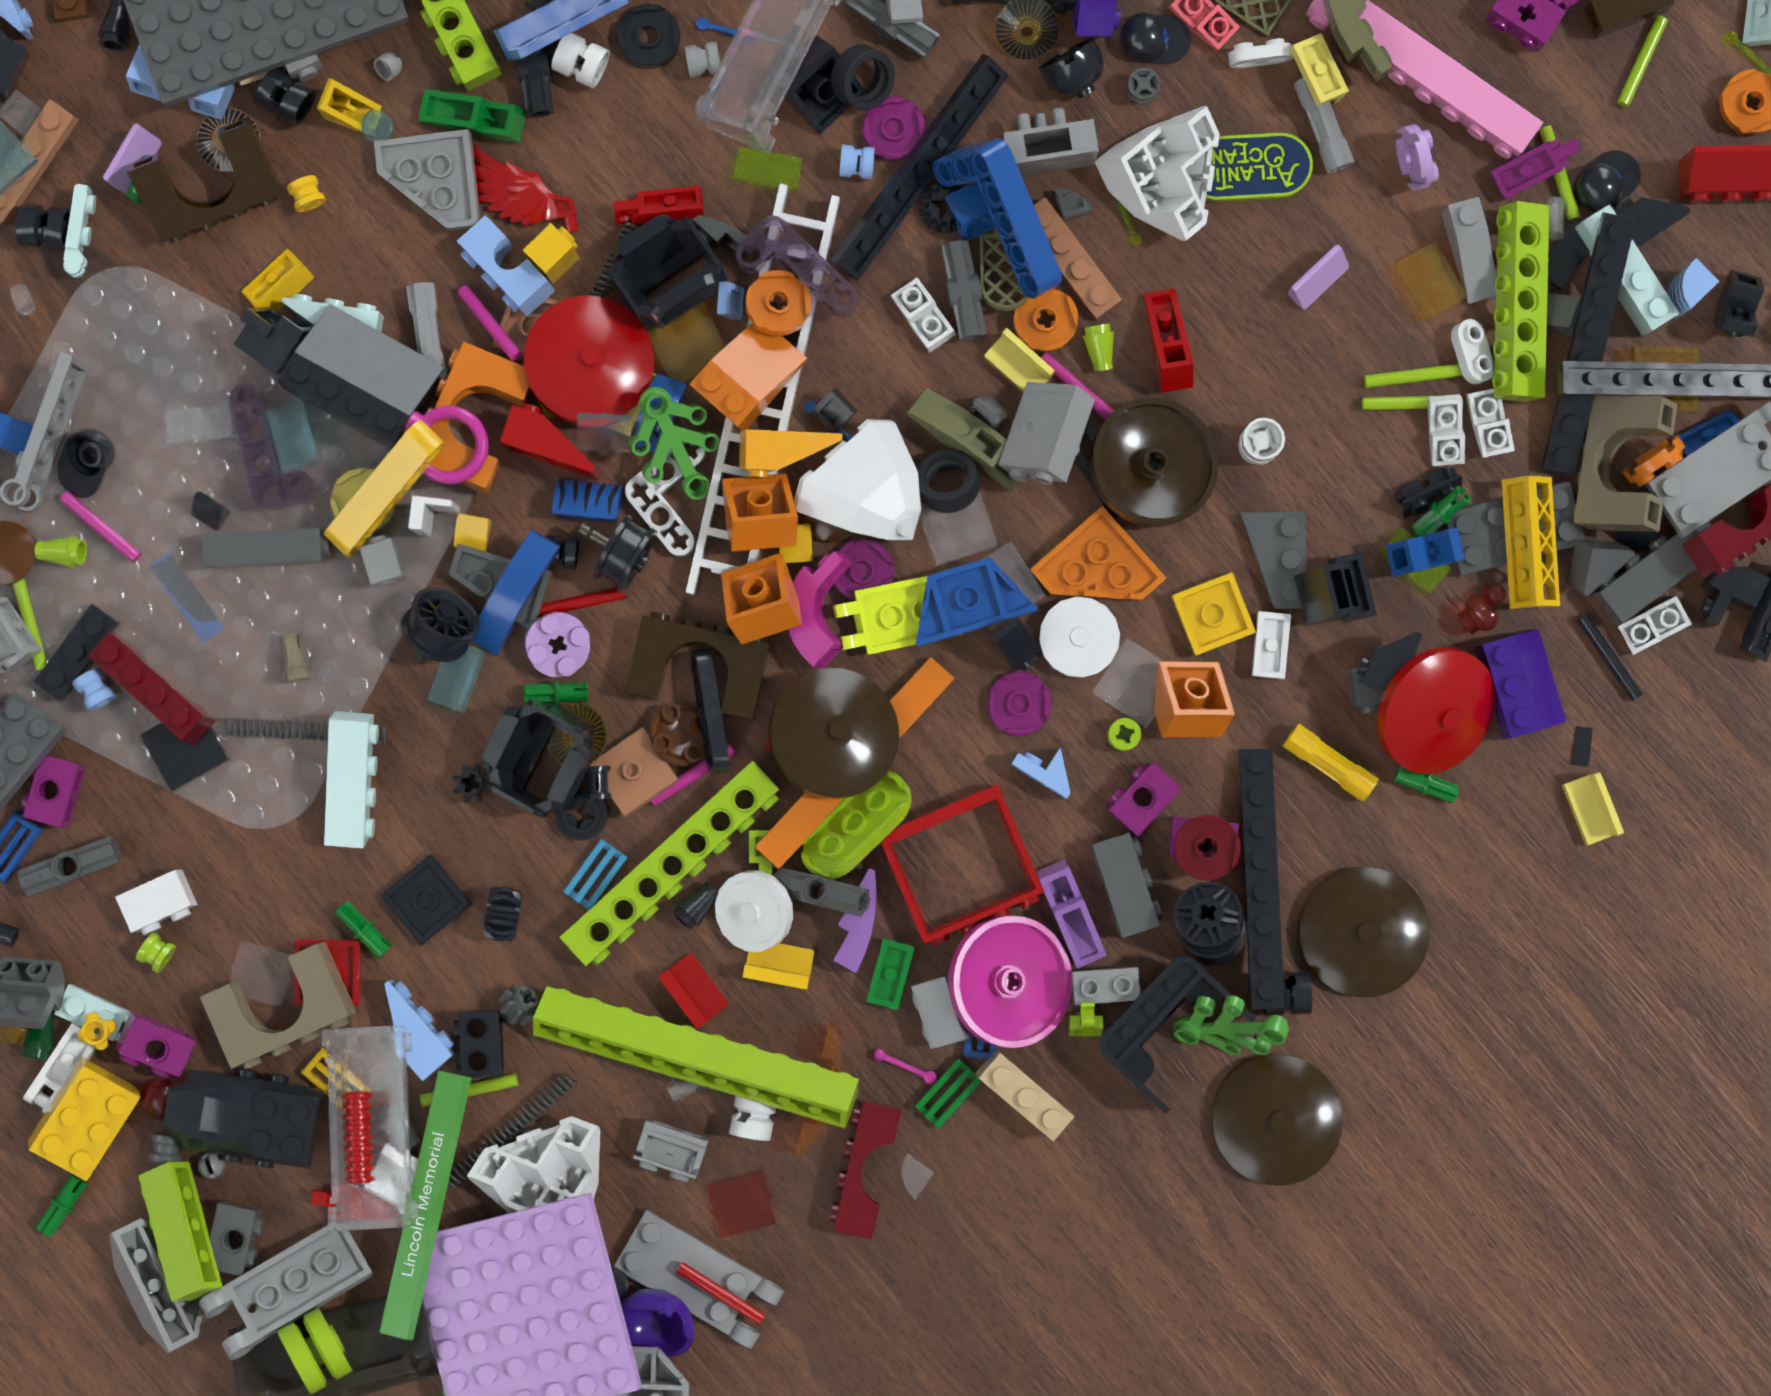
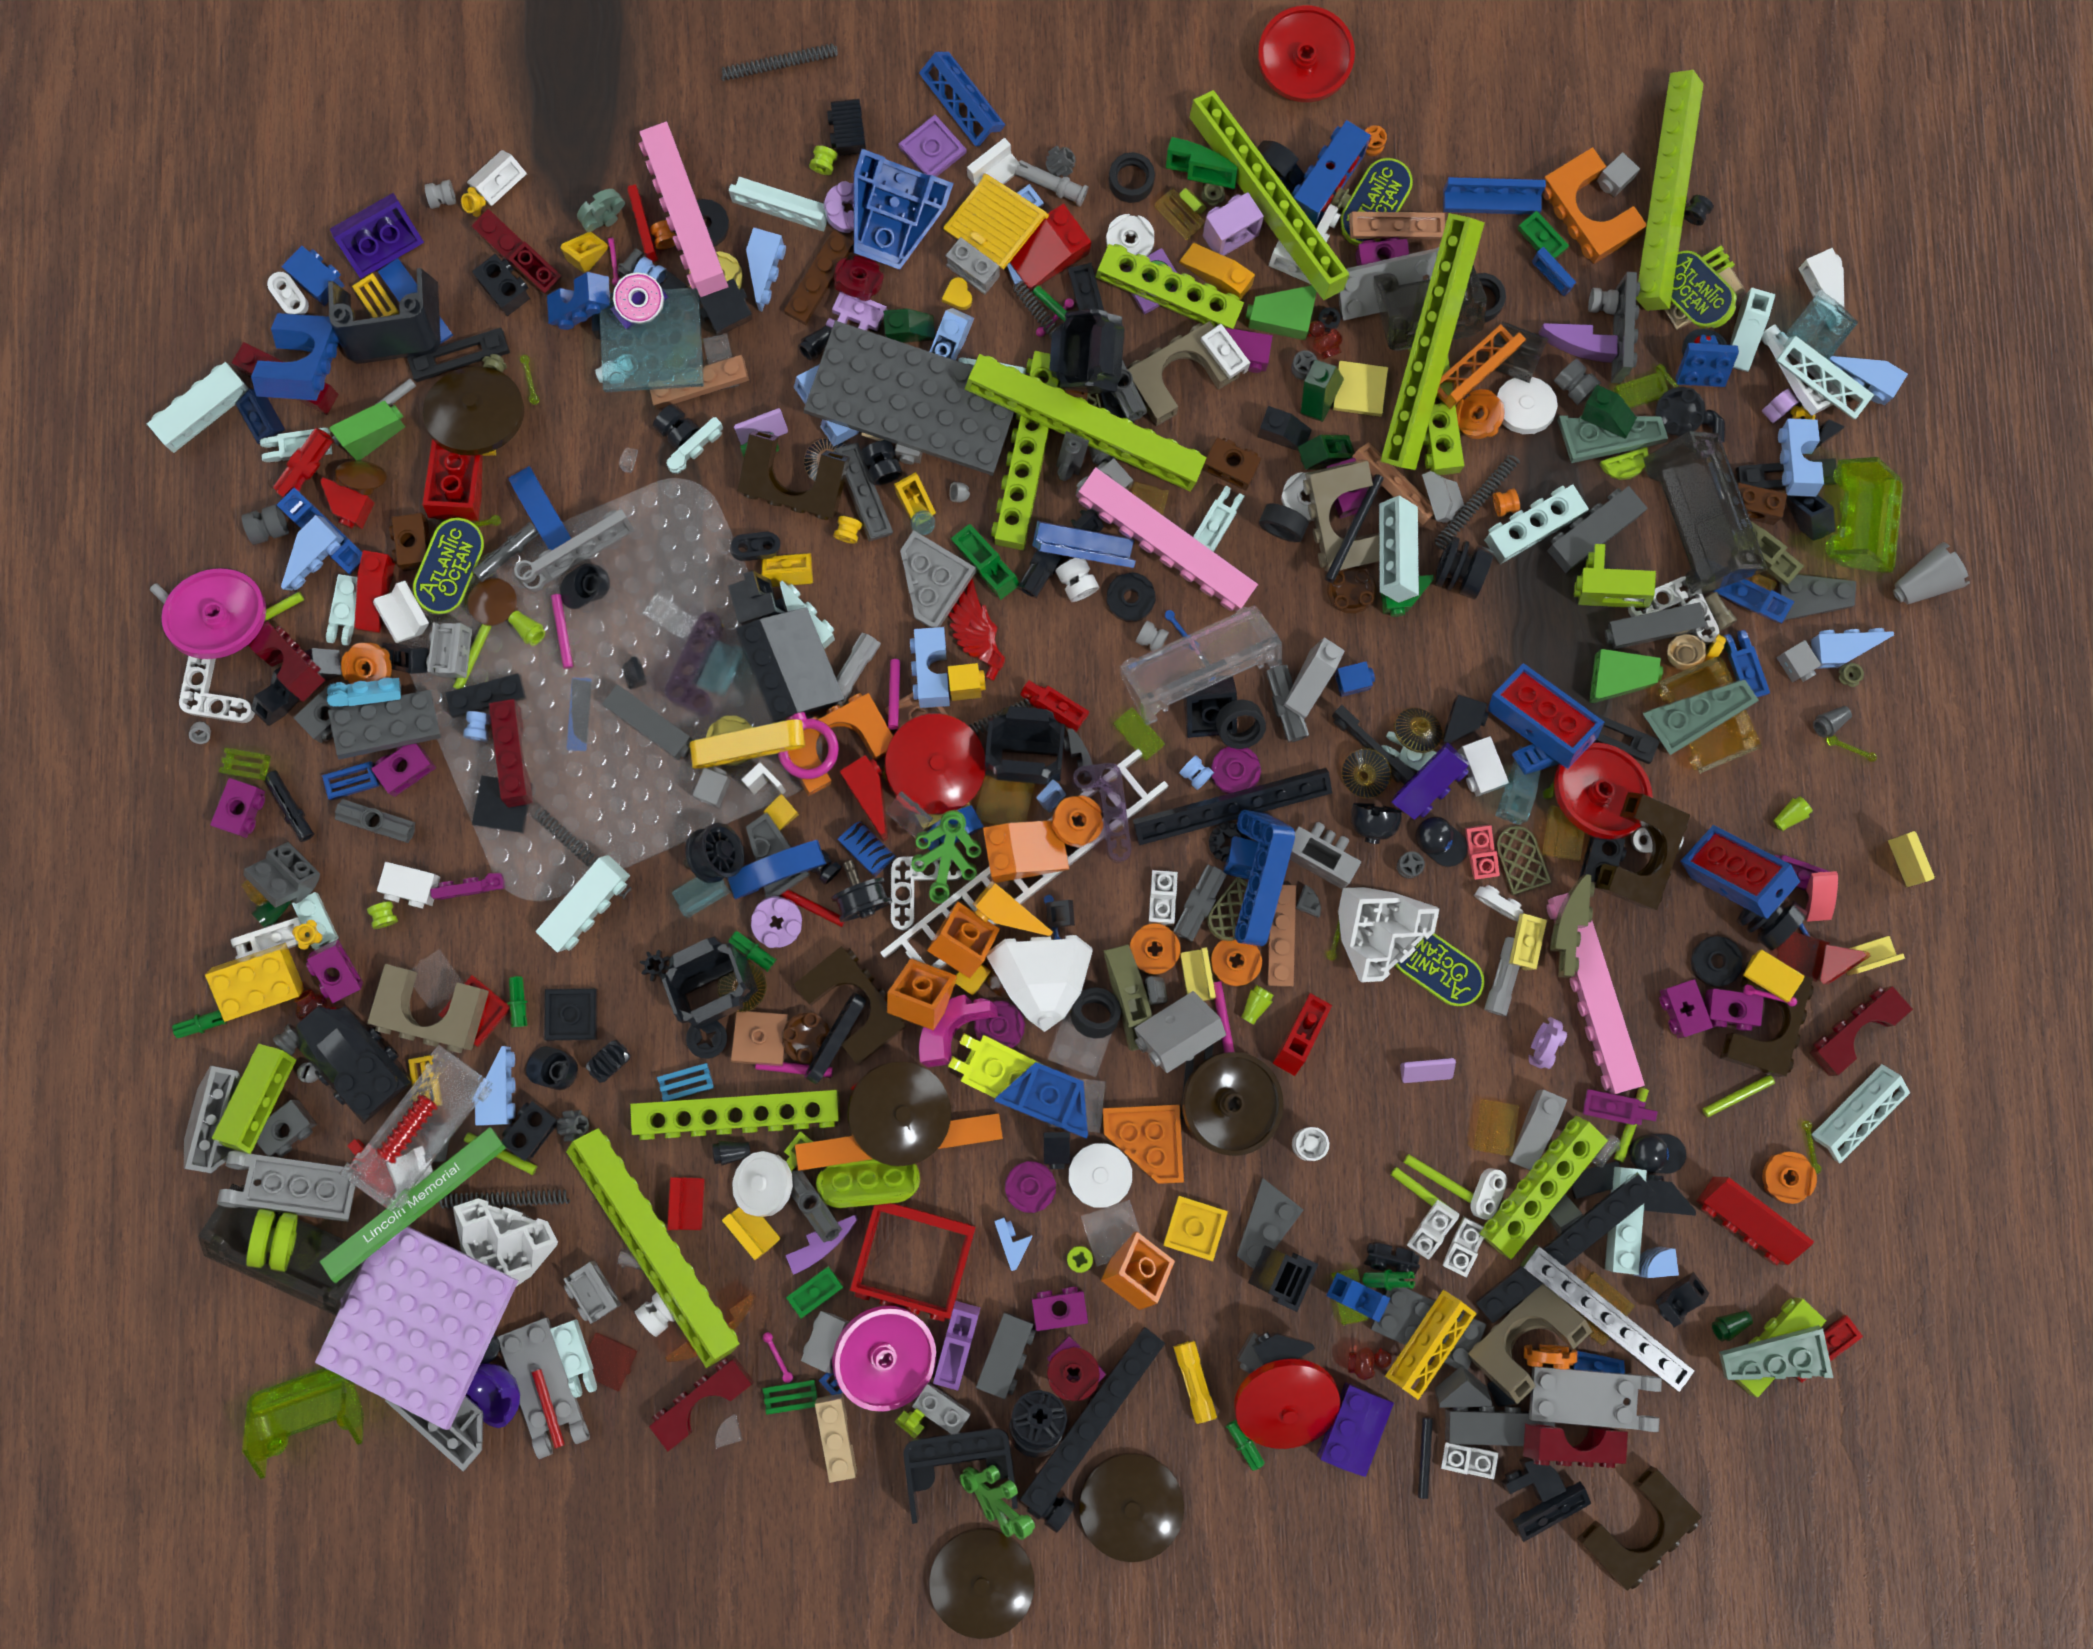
camera: 35 degrees right, 5 degrees down
(220, 855) = (470, 886): none -> magenta hinge
(222, 285) = (754, 546): none -> black plate
(294, 144) = (865, 494): none -> dark grey tile
(294, 665) = (611, 802): dark tan pin -> none
(451, 966) = (552, 1068): none -> black cap
(590, 787) = (729, 1035): black bush -> none
(704, 1224) = (574, 1356): none -> light aqua hinge
(956, 354) = (1164, 960): none -> orange plate
(1271, 645) = (1216, 1277): white plate -> none
(1582, 746) = (1364, 1500): black piece -> none
(1592, 808) = (1338, 1546): light yellow panel -> none

